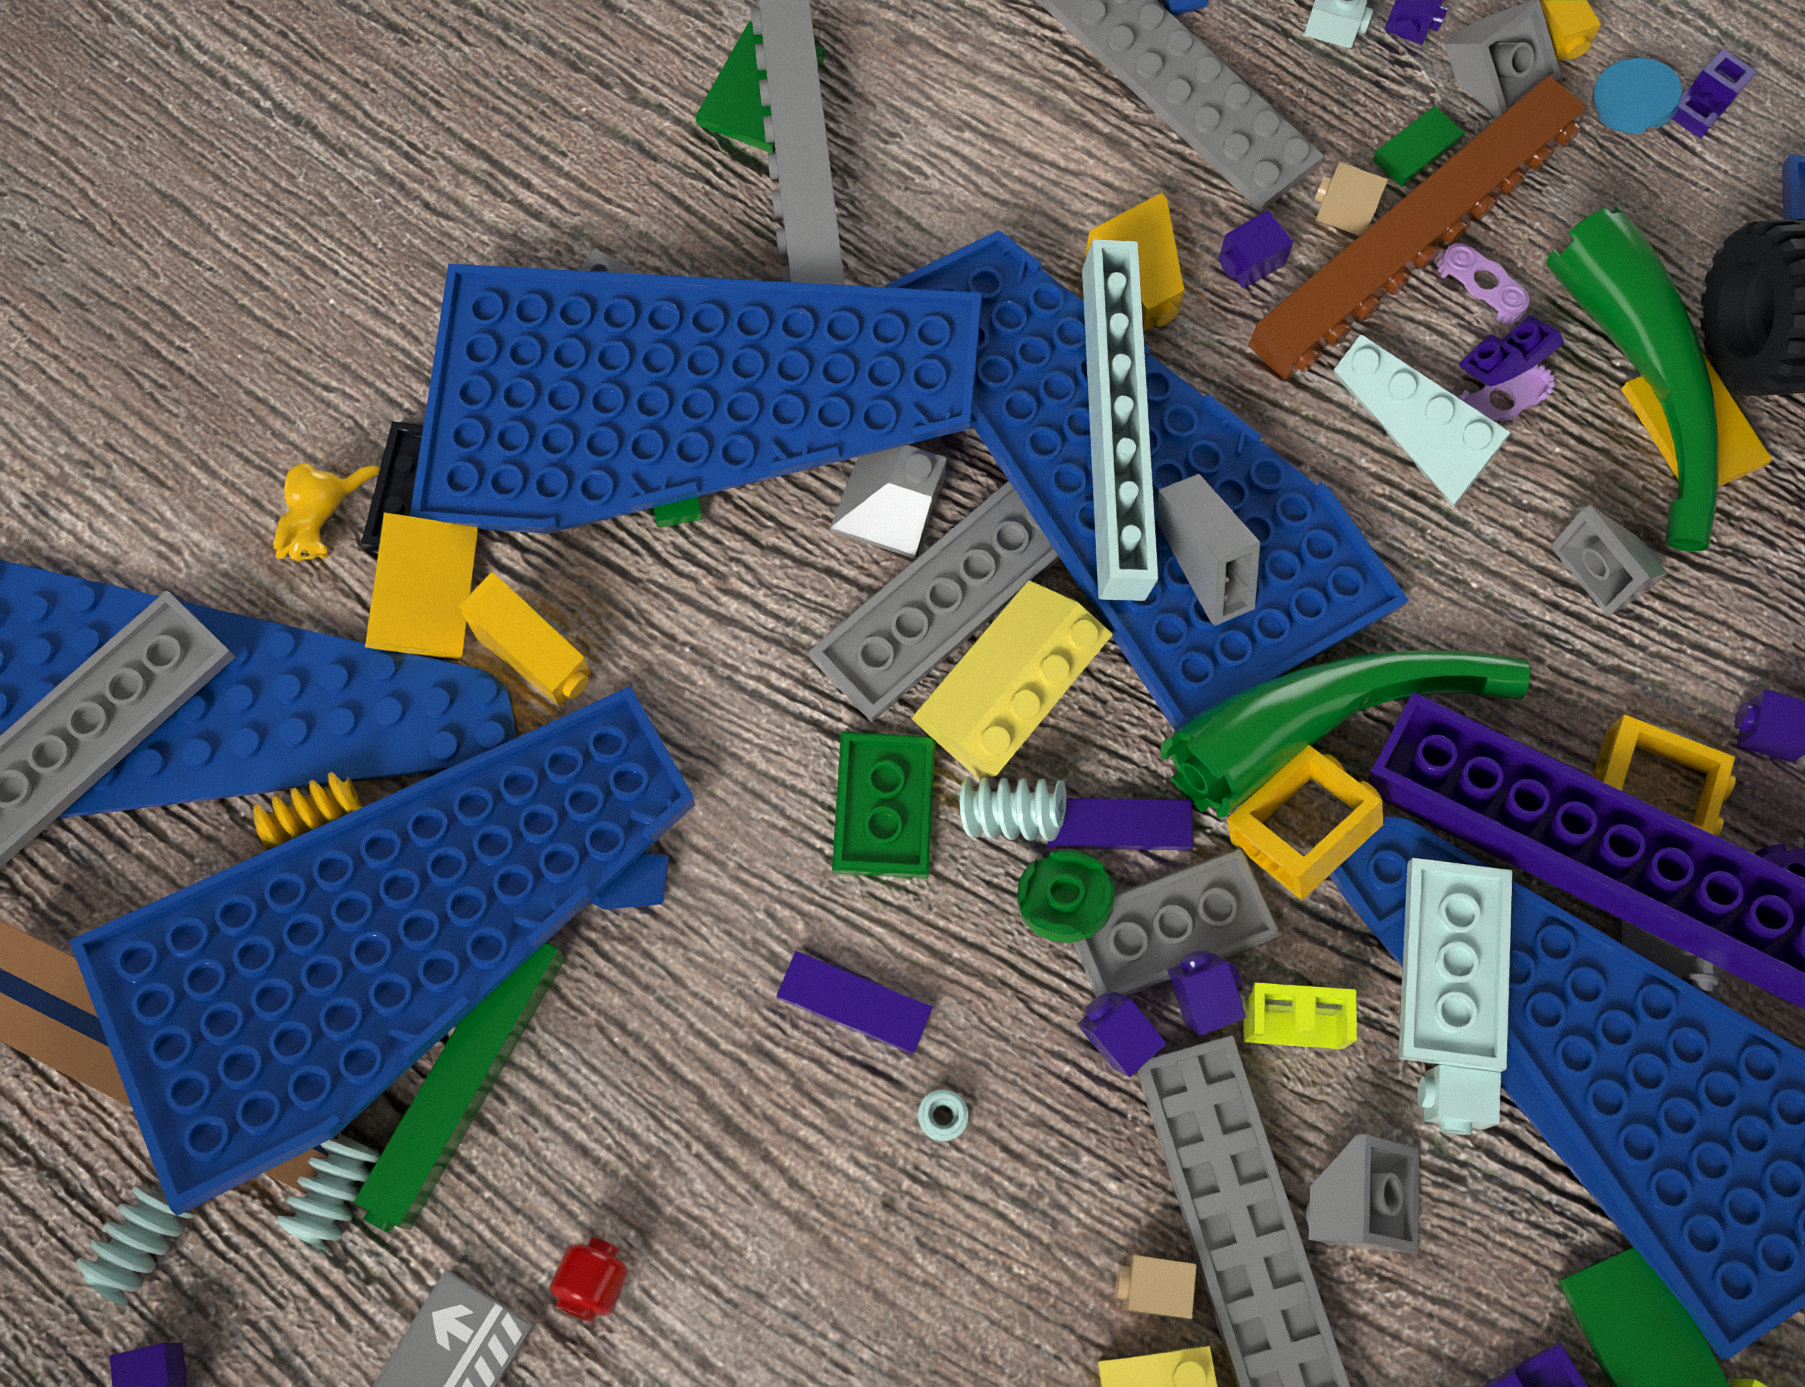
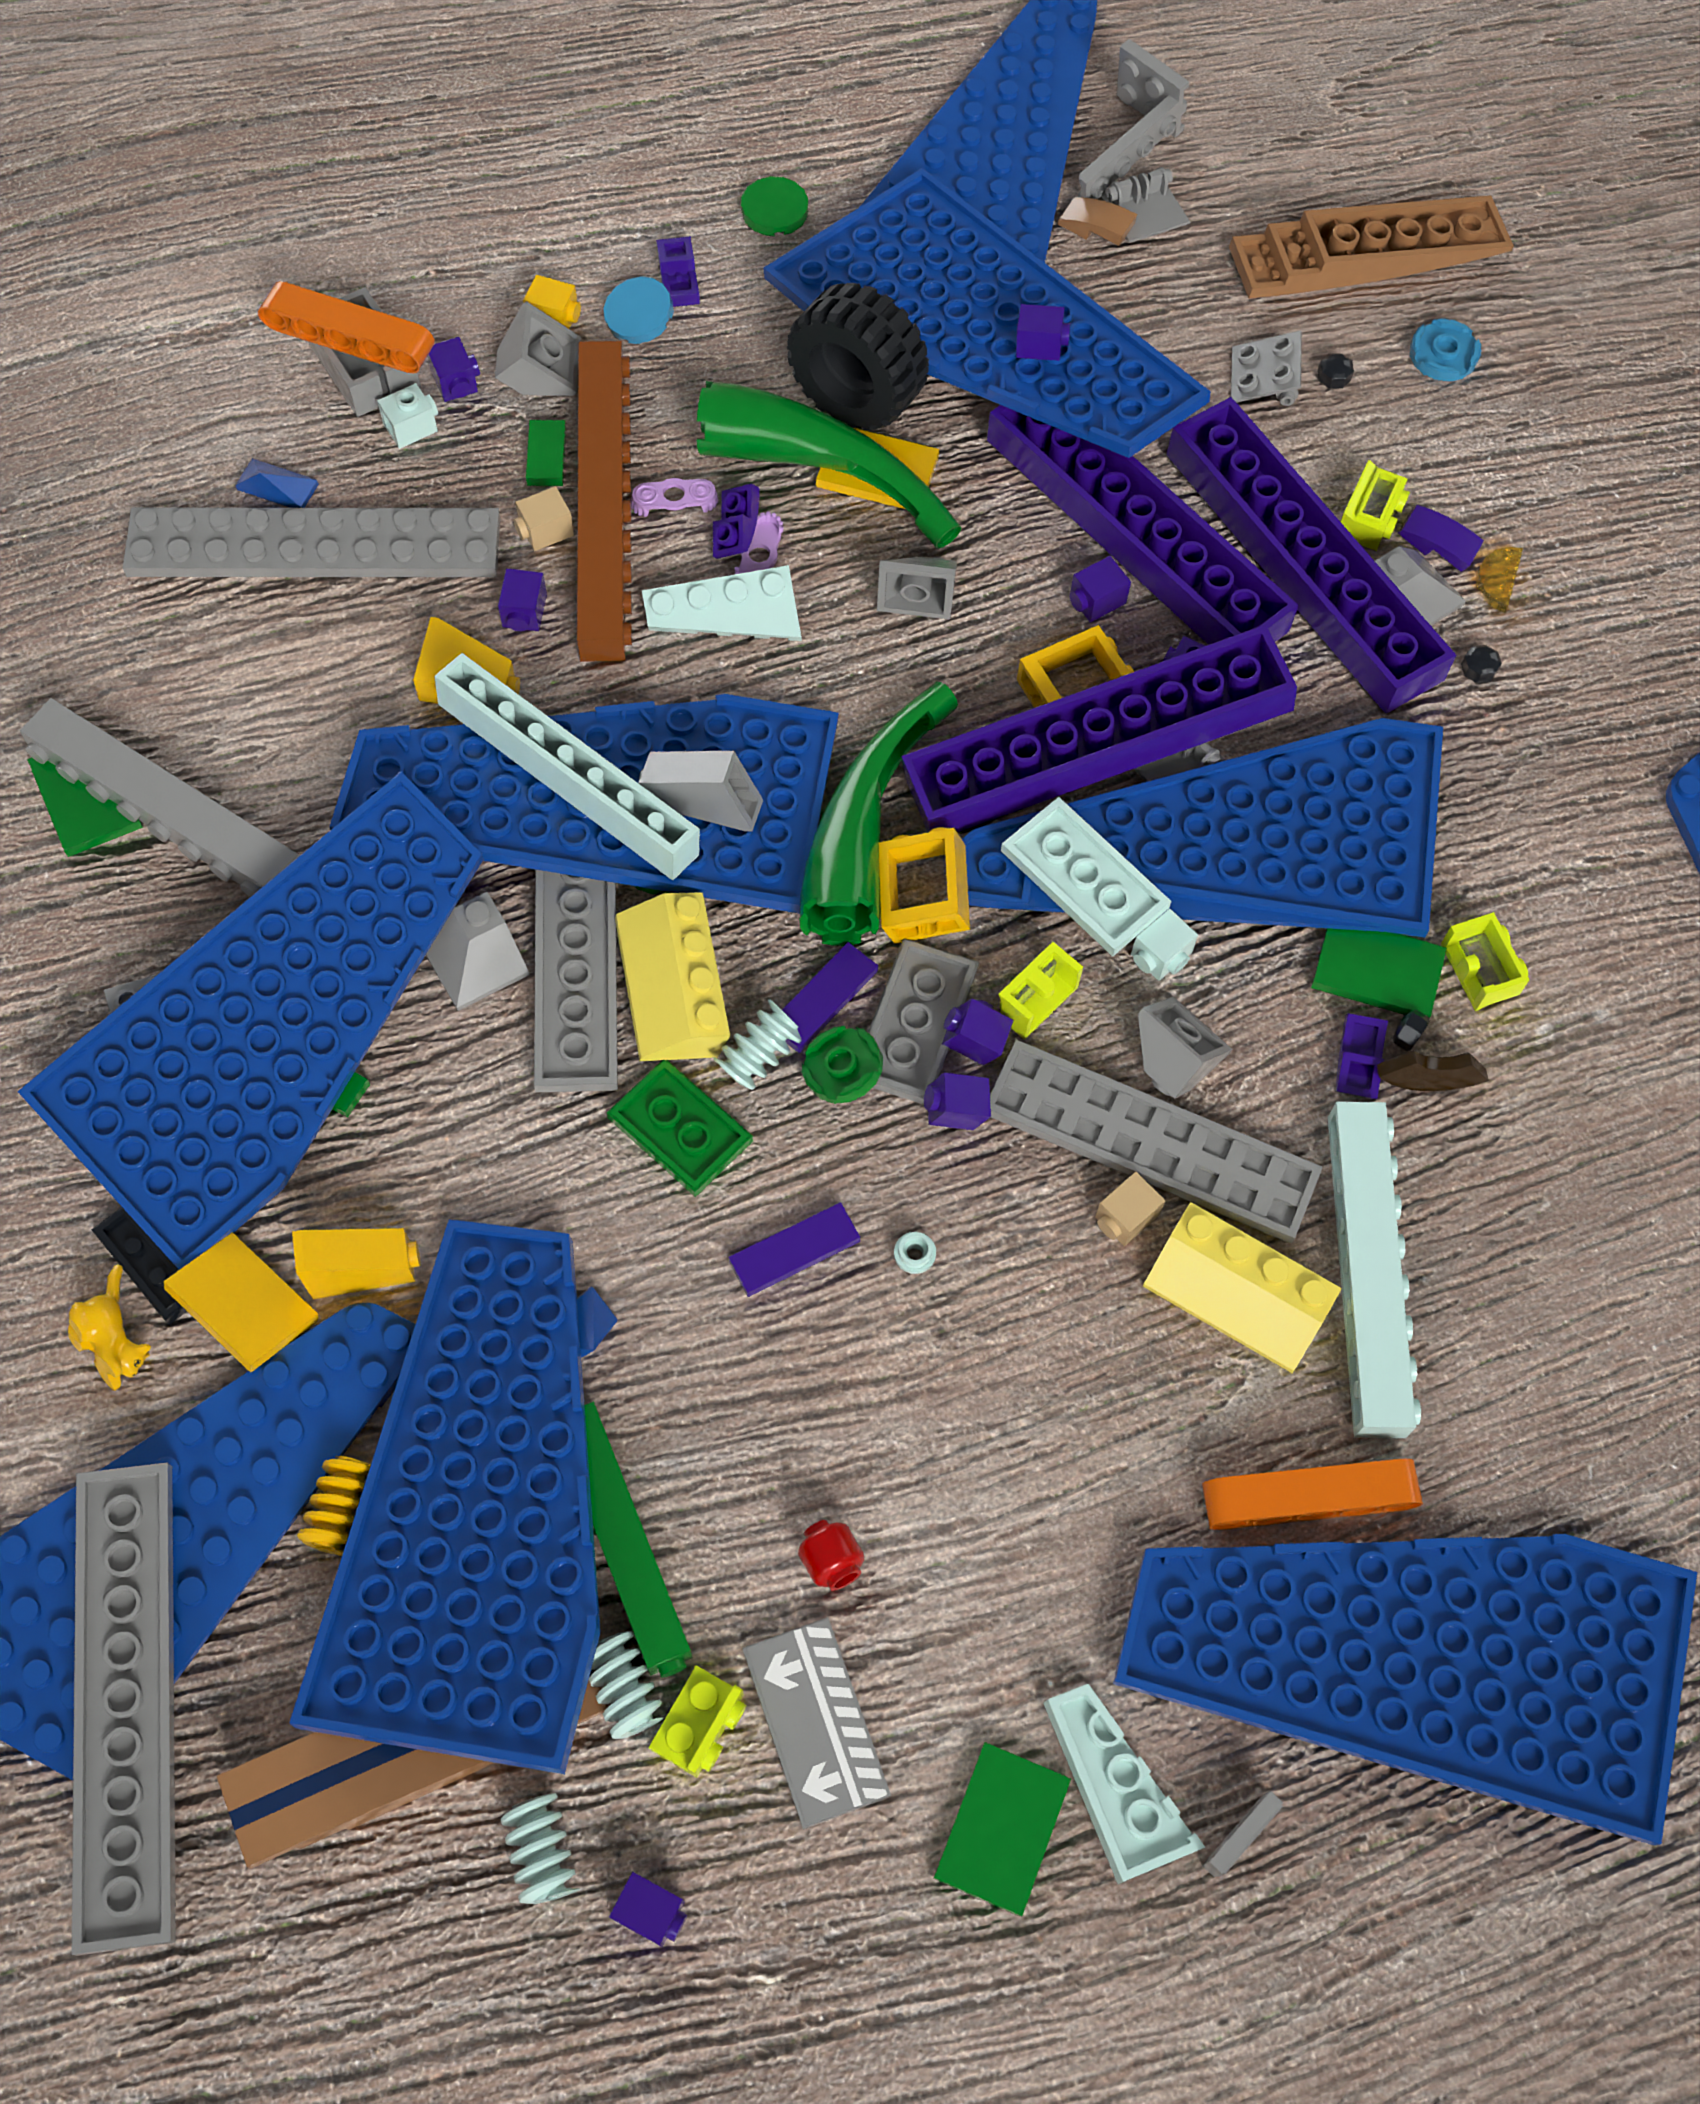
camera: 50 degrees left, 5 degrees down
(350, 1284) = (697, 1722): none -> neon yellow bracket

